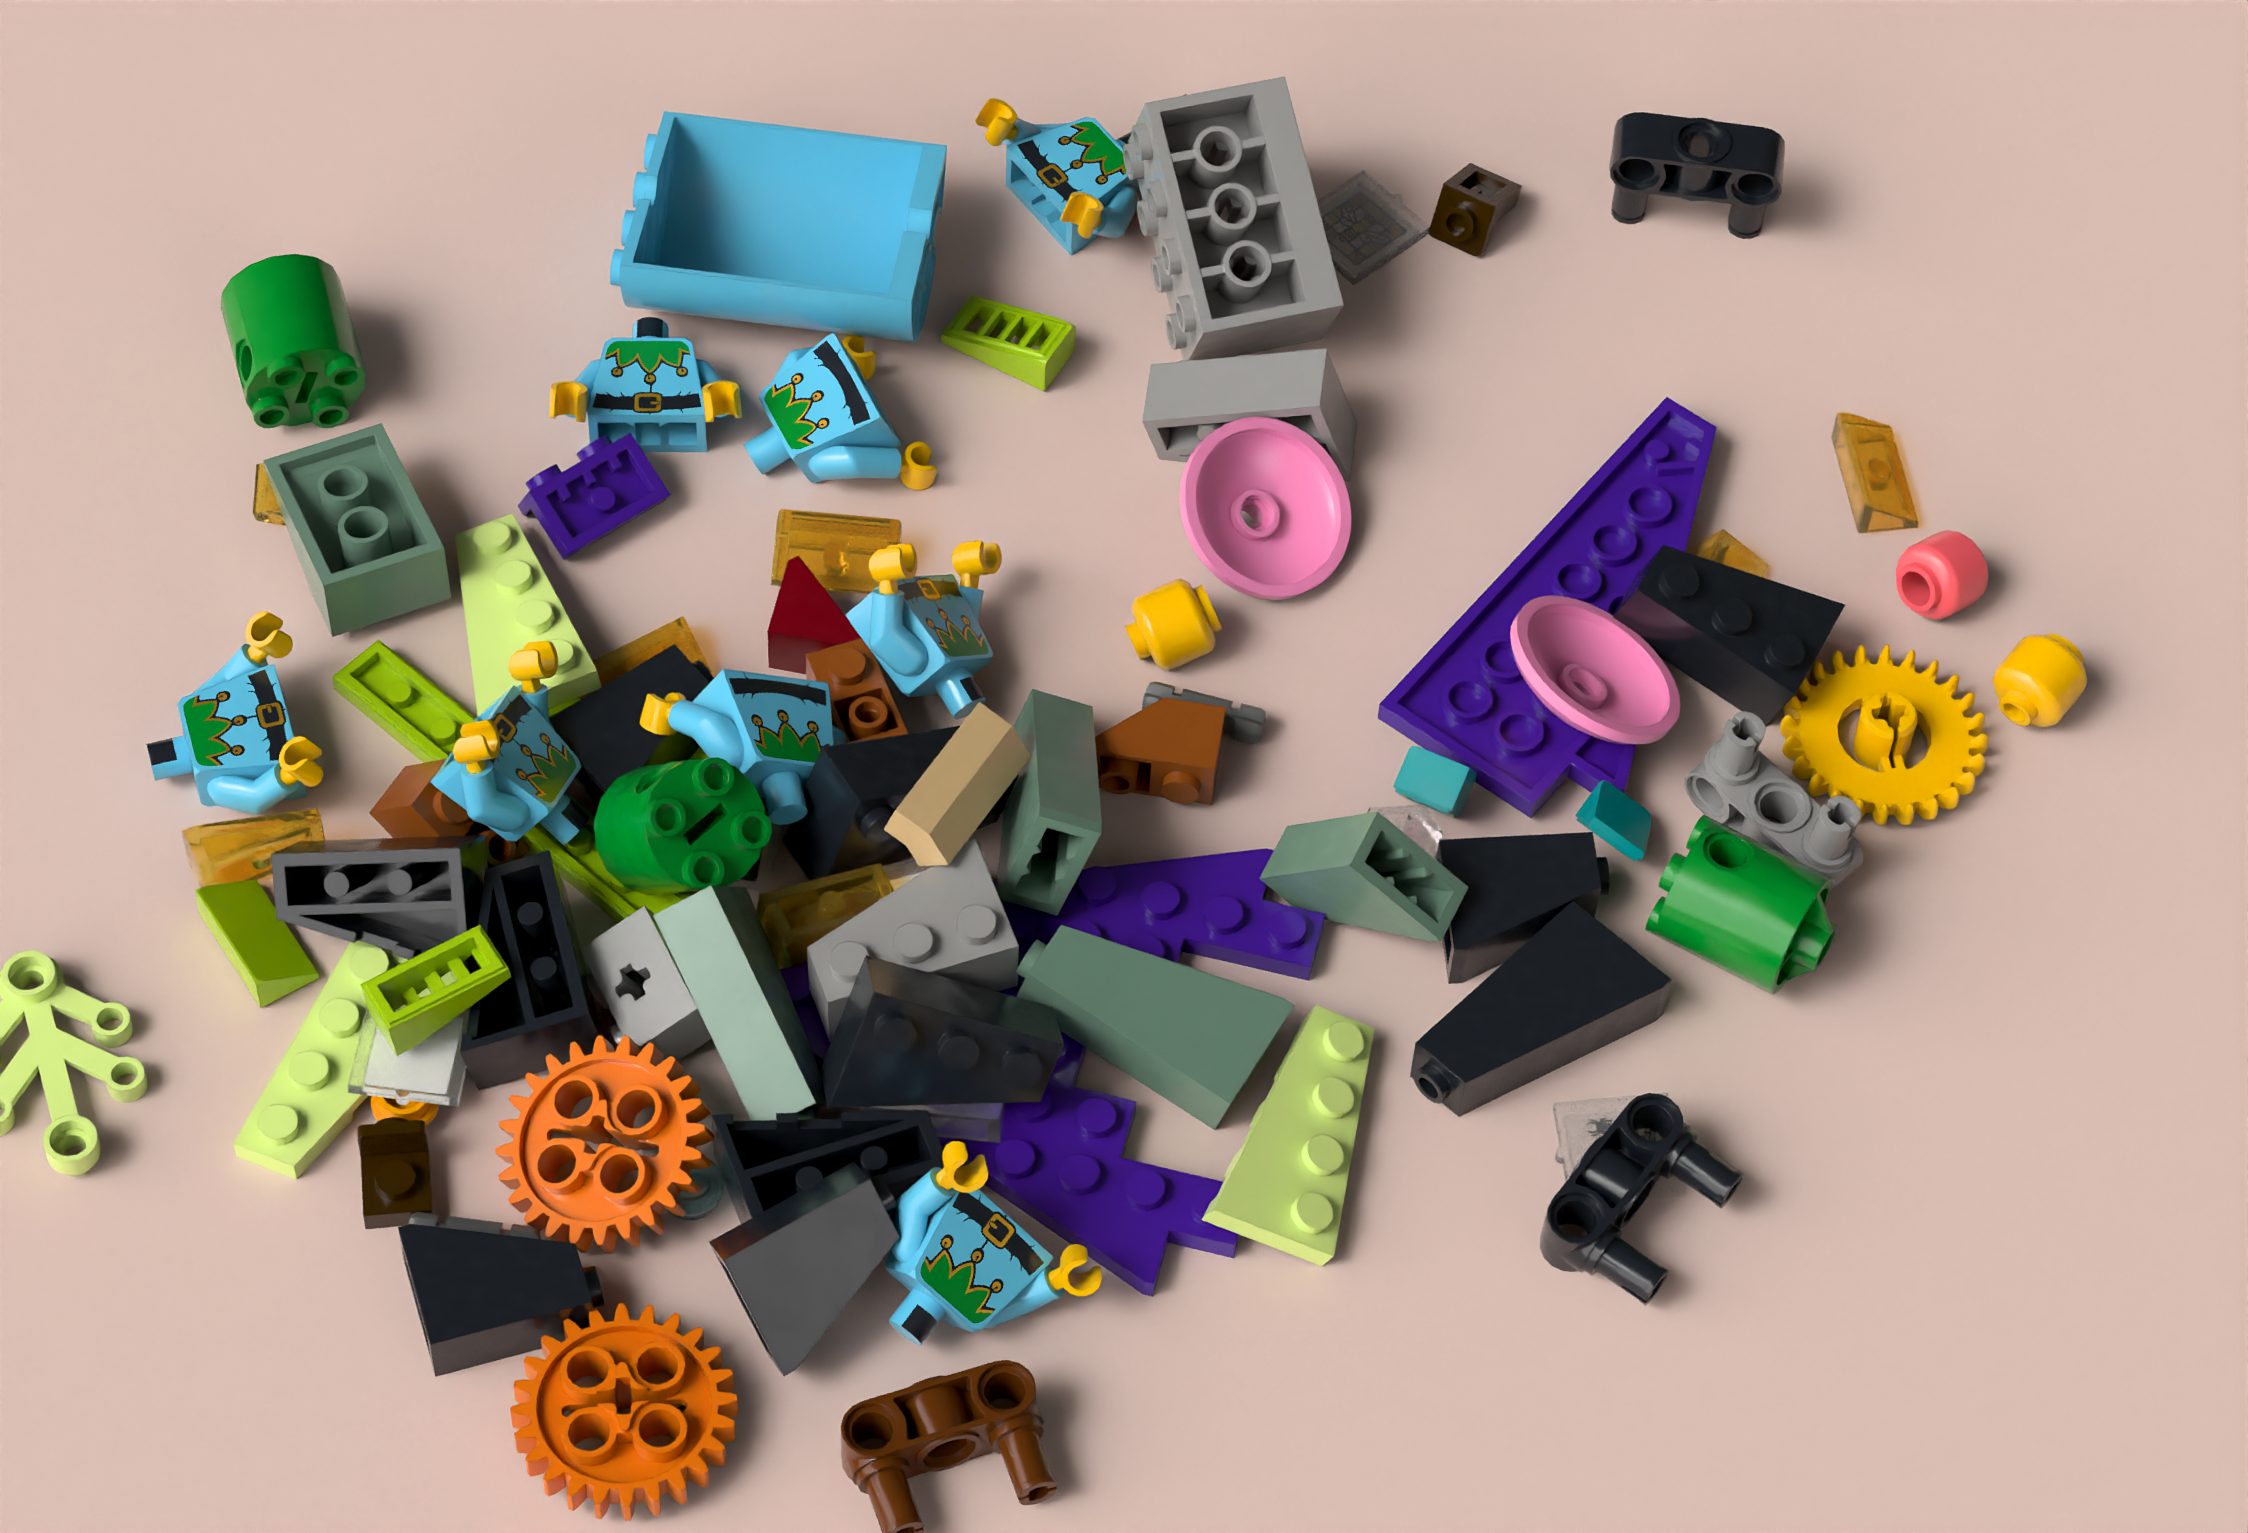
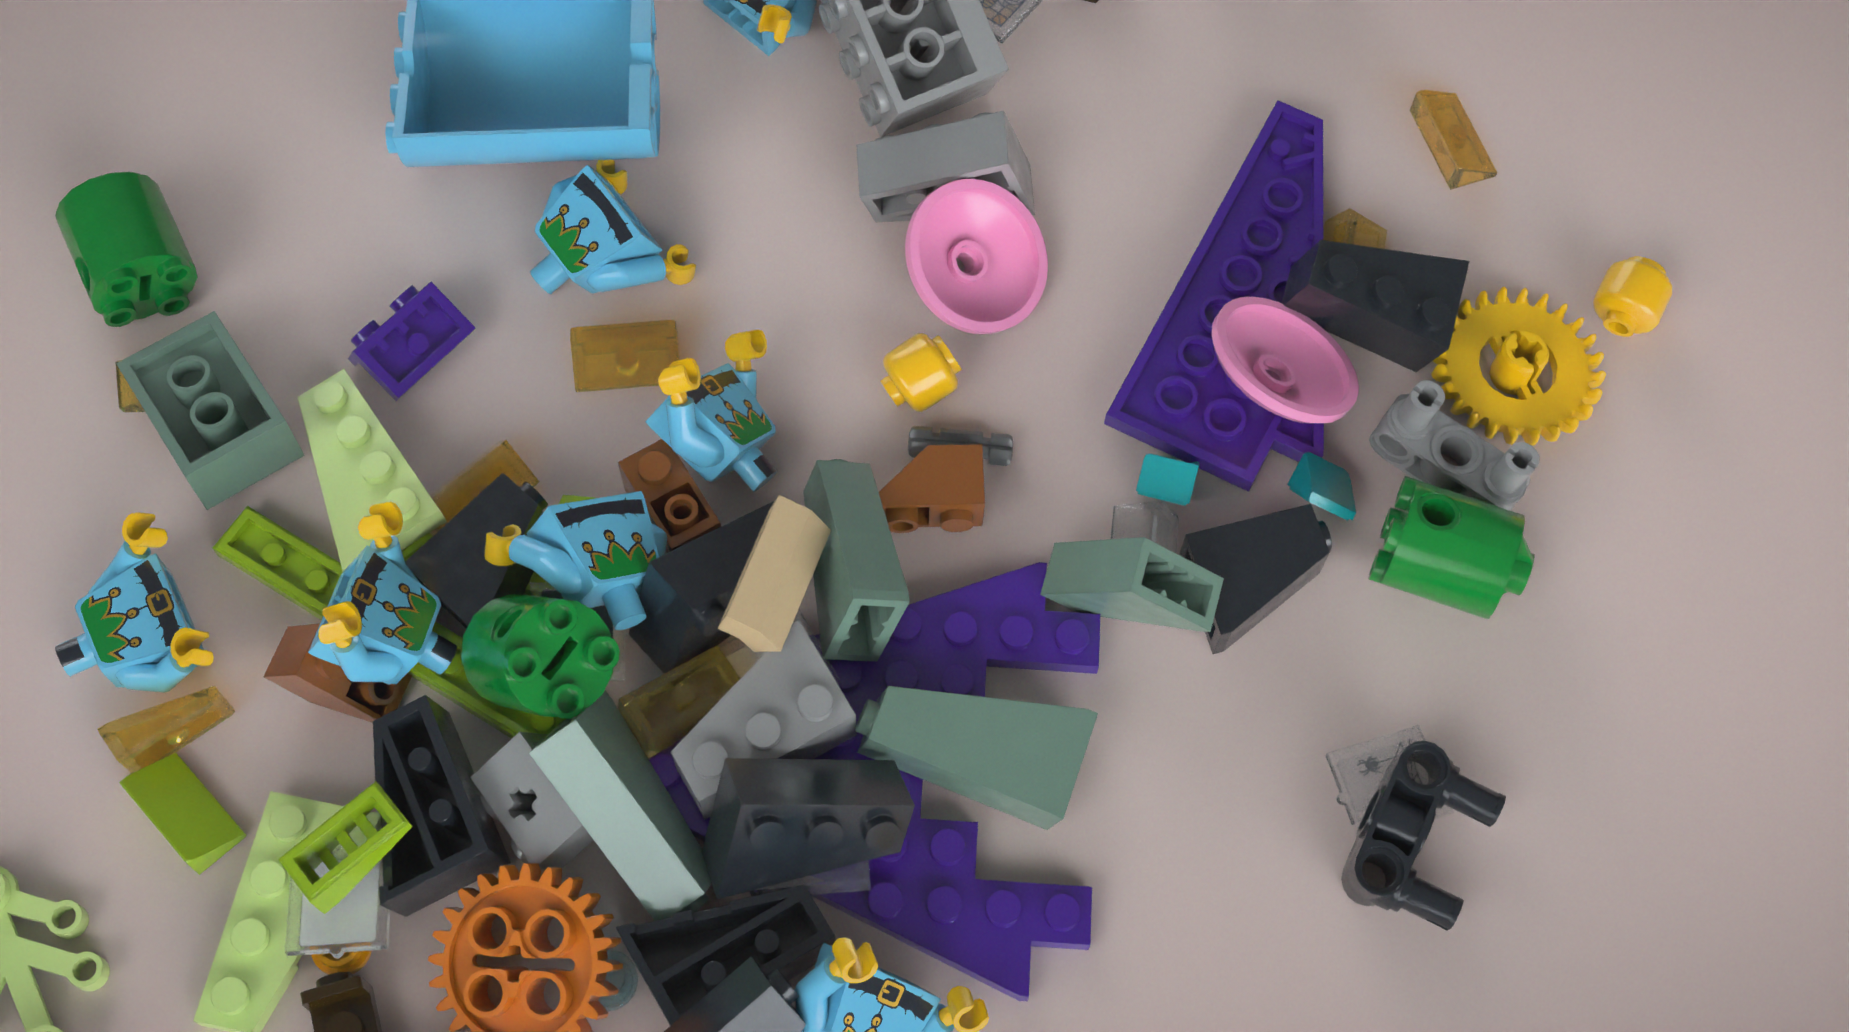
camera: 10 degrees left, 10 degrees up
(383, 889) = (286, 753): black wedge -> none
(648, 389) = (439, 240): torso -> none
(804, 620) = (610, 425): dark red slope -> none
(1018, 360) = (753, 126): lime slope -> none
(1297, 1157) = (1126, 849): yellowish green wing -> none
(1539, 1011) = (1303, 667): black slope -> none
(1941, 575) = (1531, 217): coral head -> none

